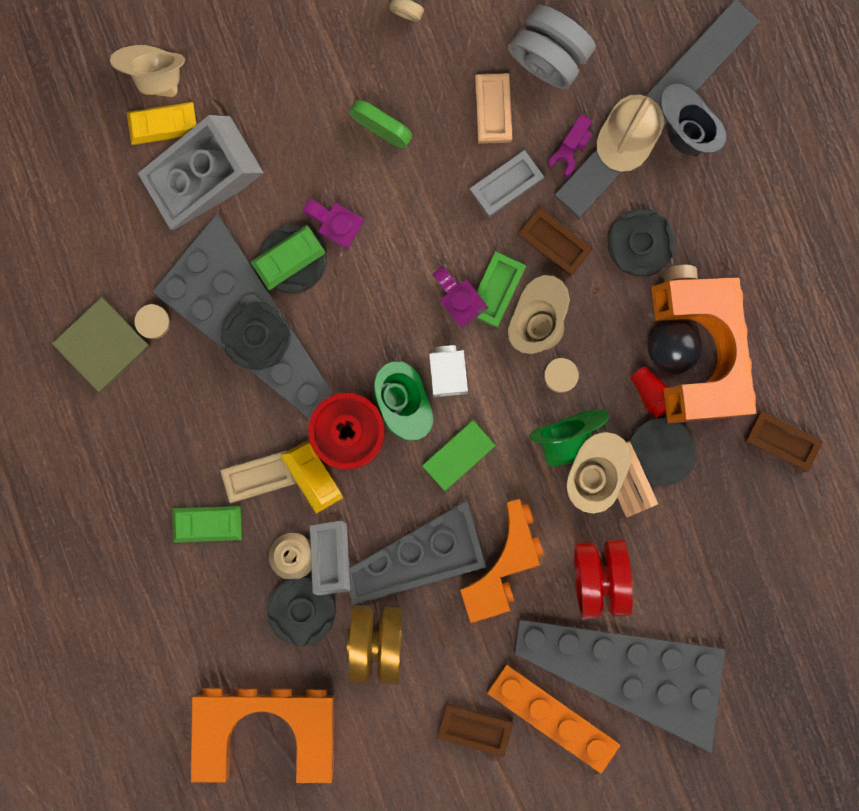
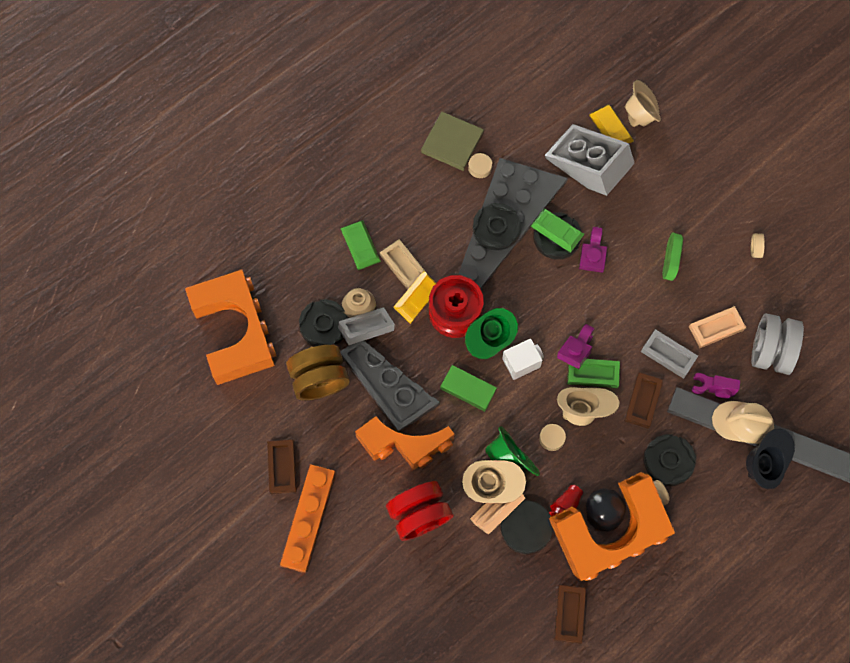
camera: 70 degrees right, 15 degrees down
(653, 678) = (360, 579): dark grey wing -> none

